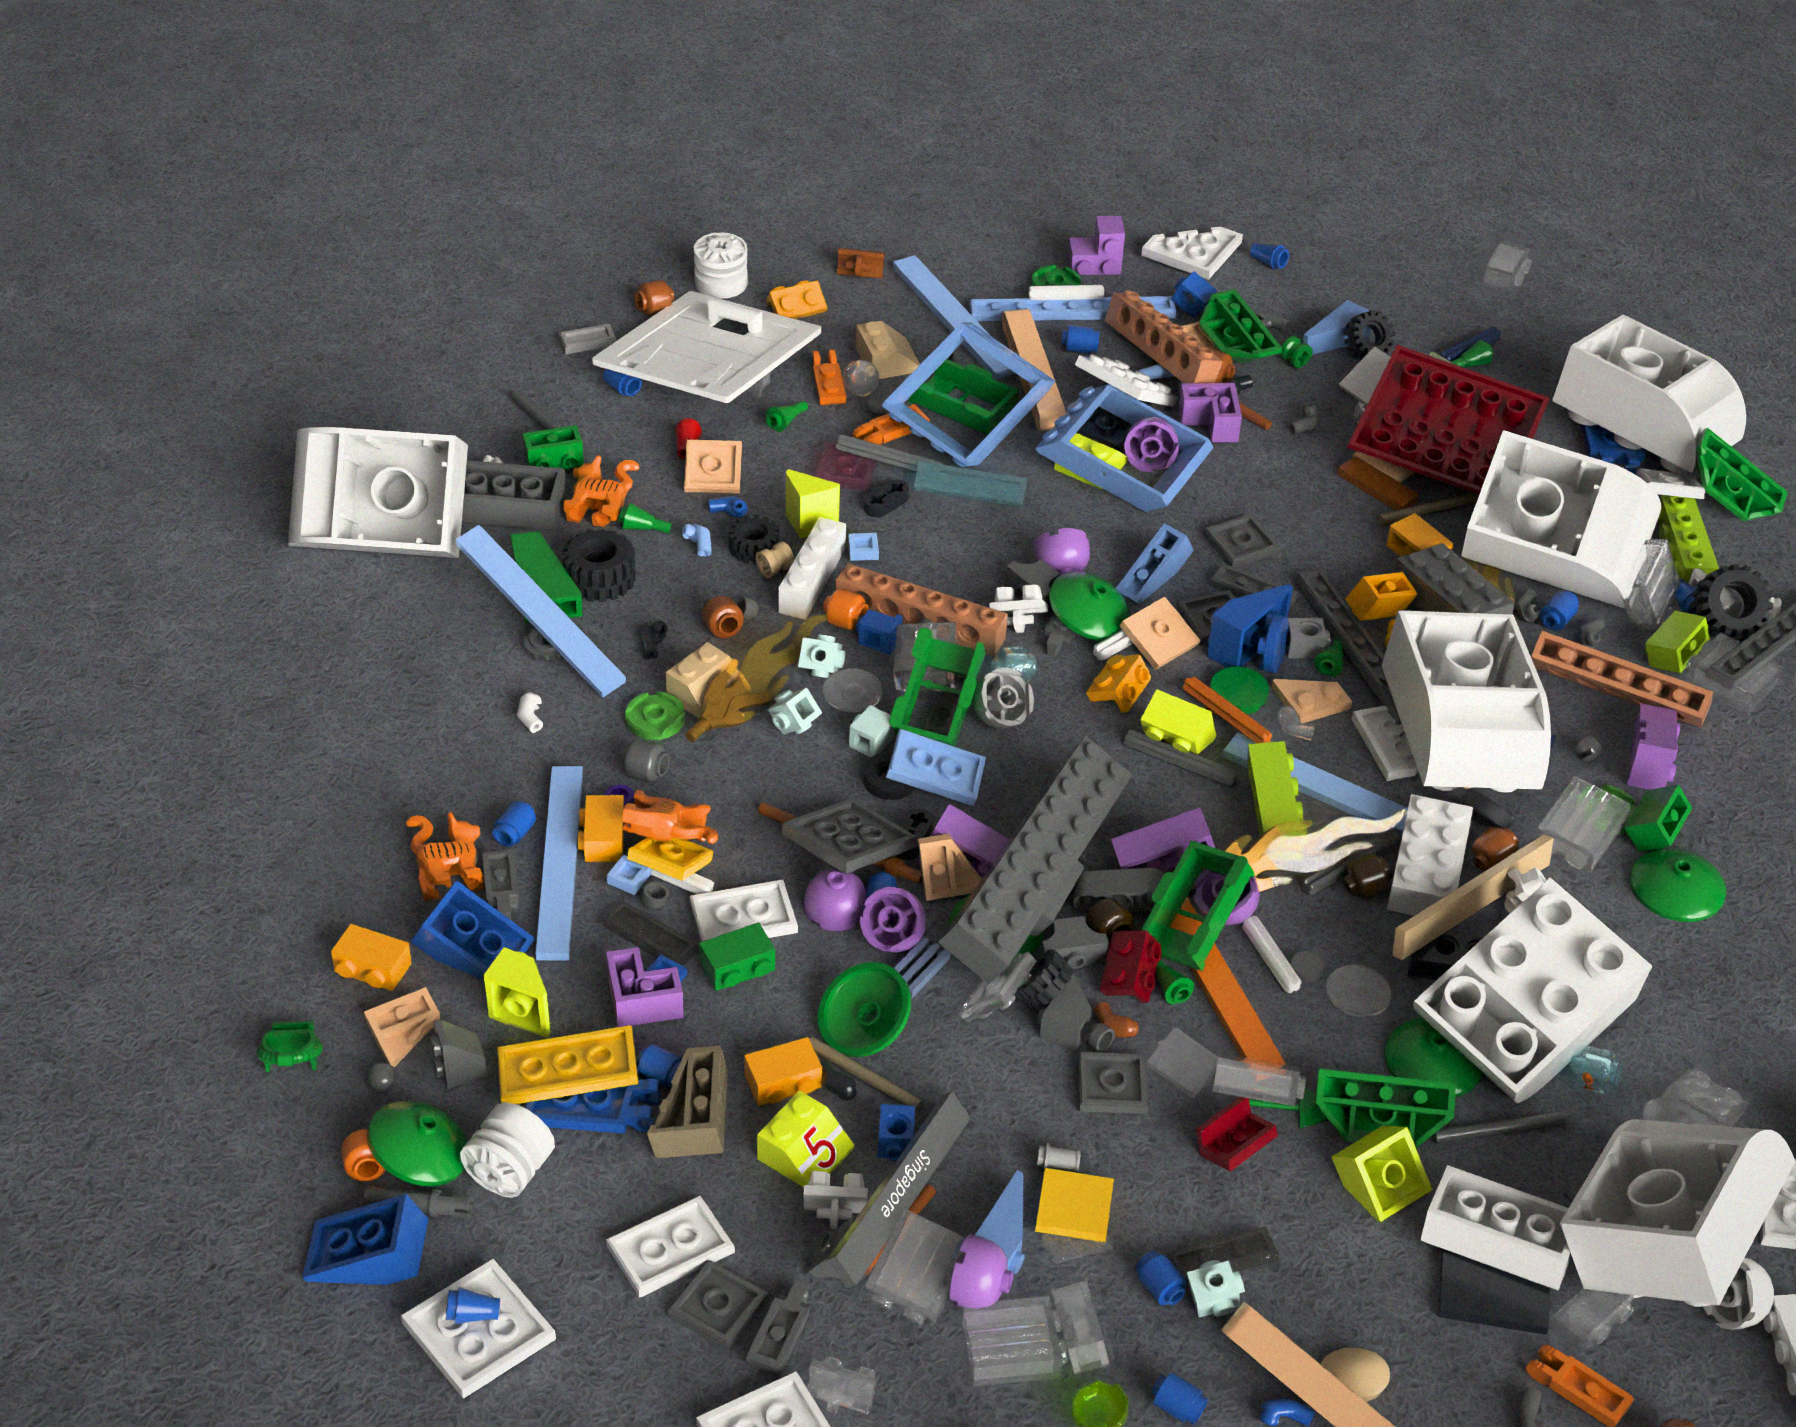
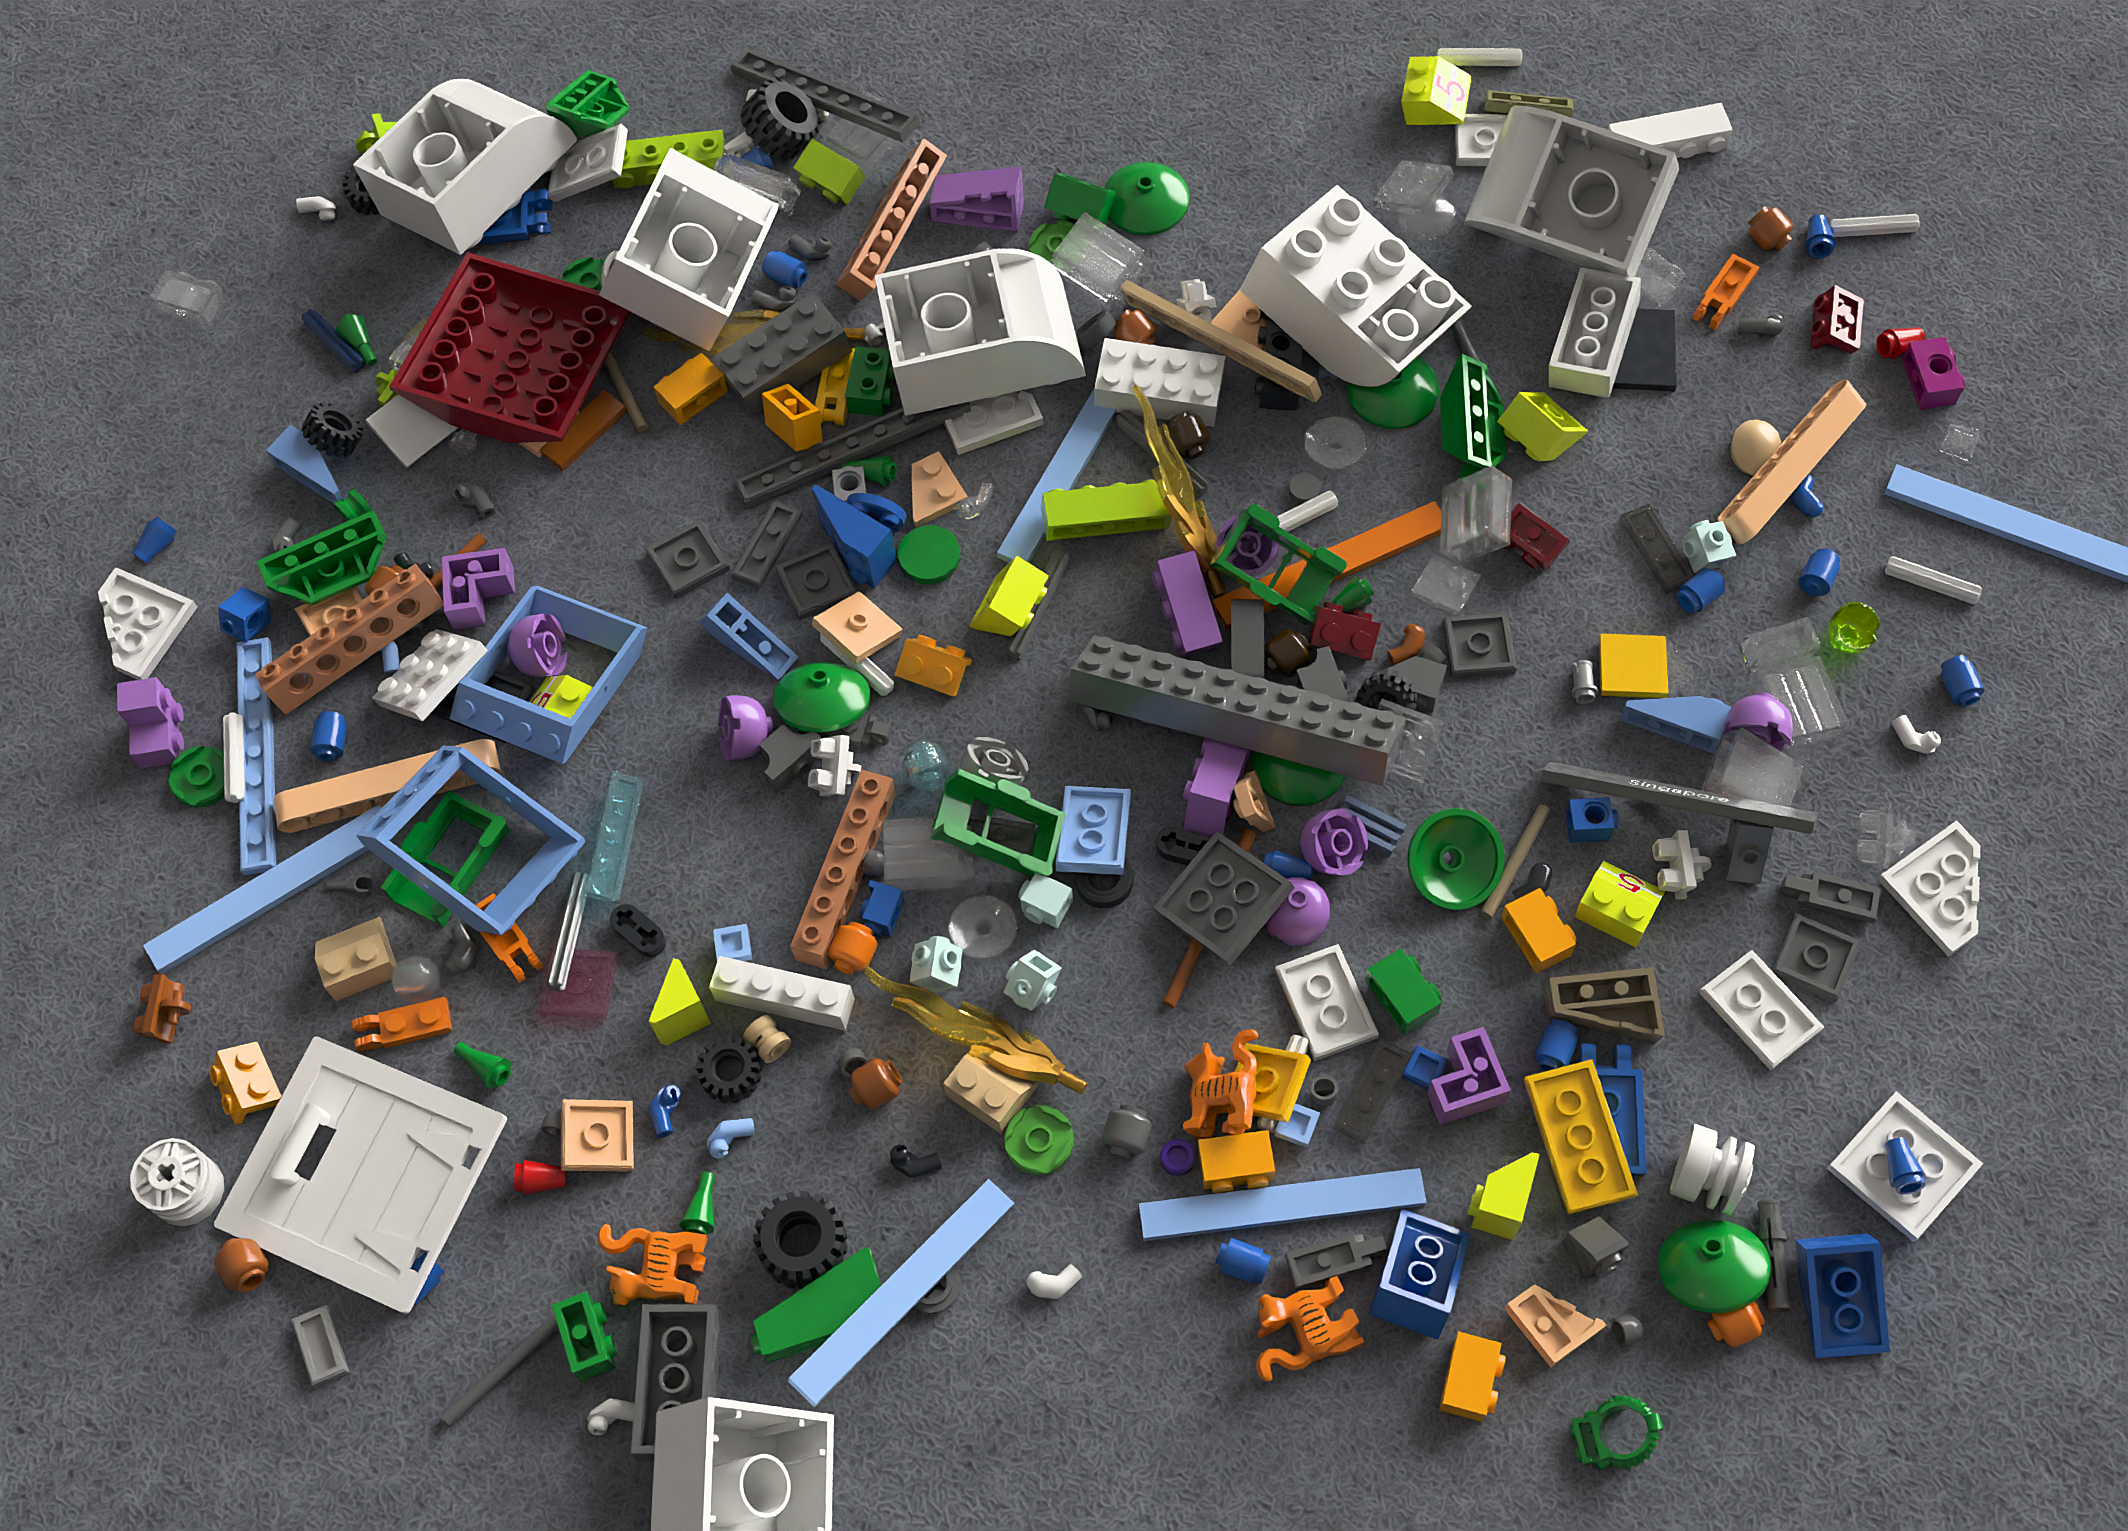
camera: 90 degrees left, 20 degrees up
(1226, 711) = (970, 561): orange axle -> none

